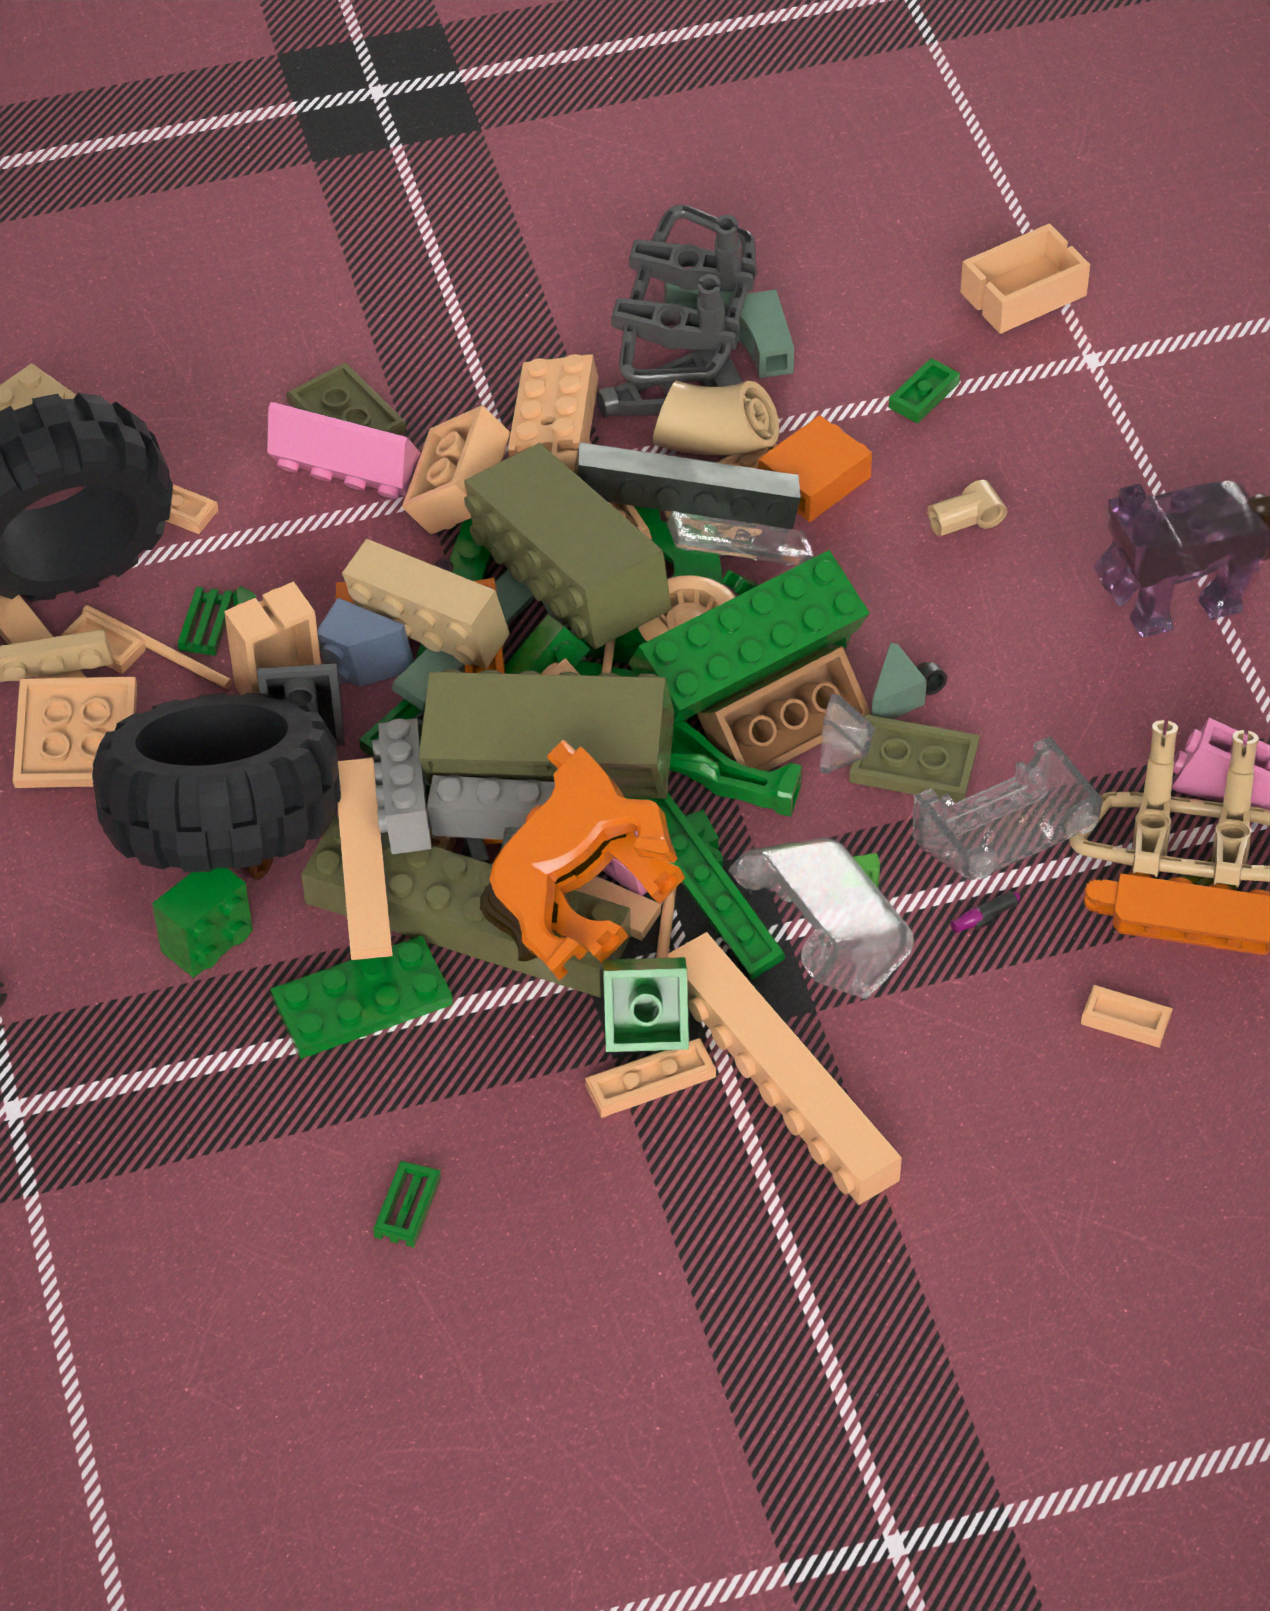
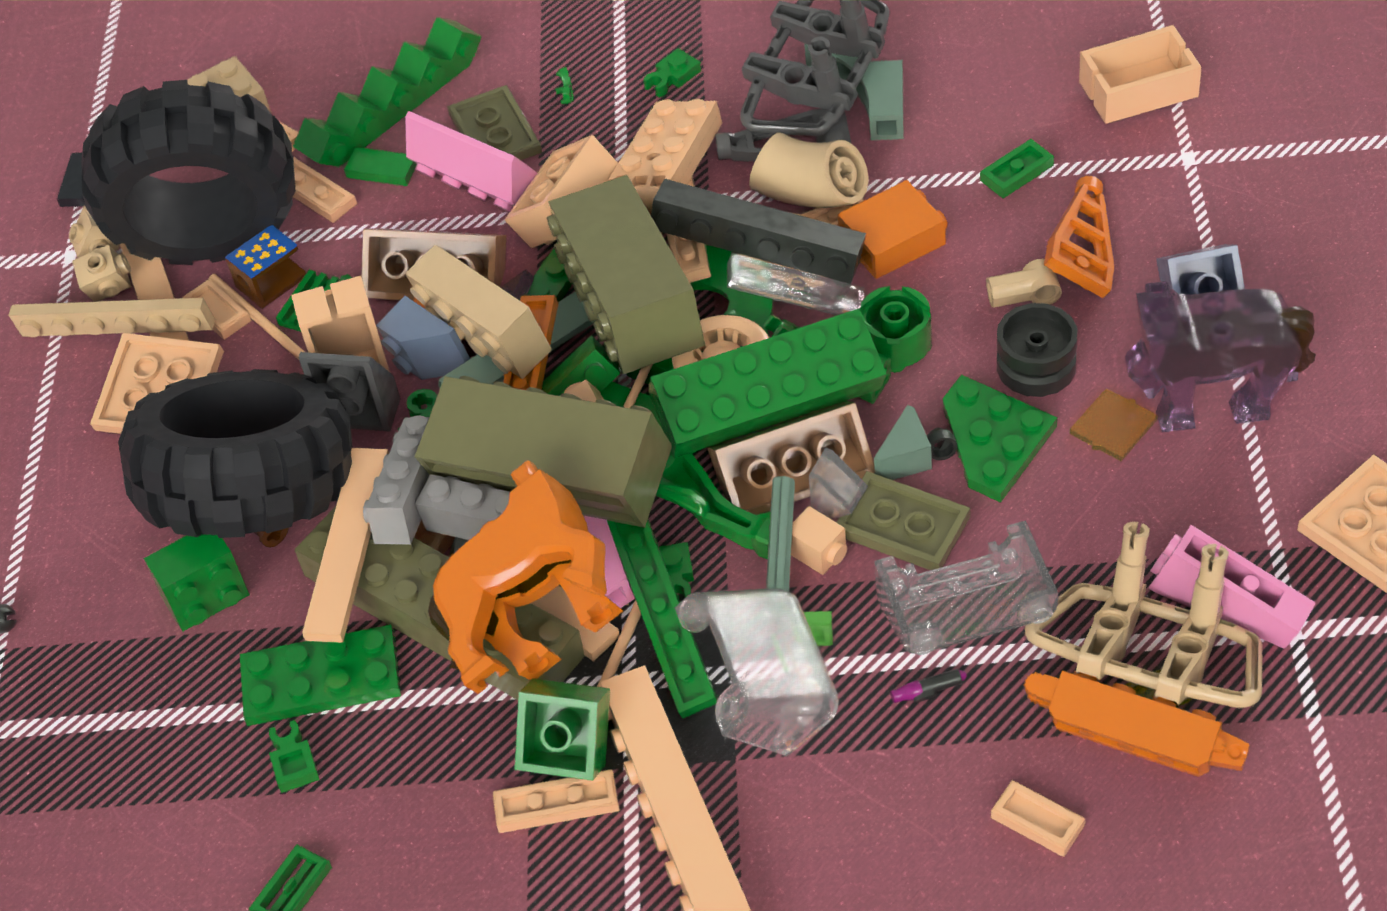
camera: 20 degrees right, 0 degrees up
(145, 589) = (263, 266): none -> piece
(224, 383) = (389, 94): none -> green brick
(233, 467) = (380, 166): none -> green tile
(319, 557) = (392, 252): none -> medium nougat slope
(366, 1083) = (292, 760): none -> green plate
(370, 704) = (419, 398): none -> green bush
(408, 349) = (566, 90): none -> green piece
(524, 325) = (673, 69): none -> green plate
(803, 783) = (780, 533): none -> sand green axle
(835, 789) = (818, 540): none -> light nougat brick
(863, 558) = (898, 324): none -> green brick
(980, 662) = (994, 435): none -> green plate
(1001, 571) = (1036, 349): none -> pearl dark grey wheel
(1030, 484) = (1070, 260): none -> orange plate
(1093, 636) = (1113, 424): none -> clear yellow piece
(1153, 467) = (1203, 270): none -> sand blue slope

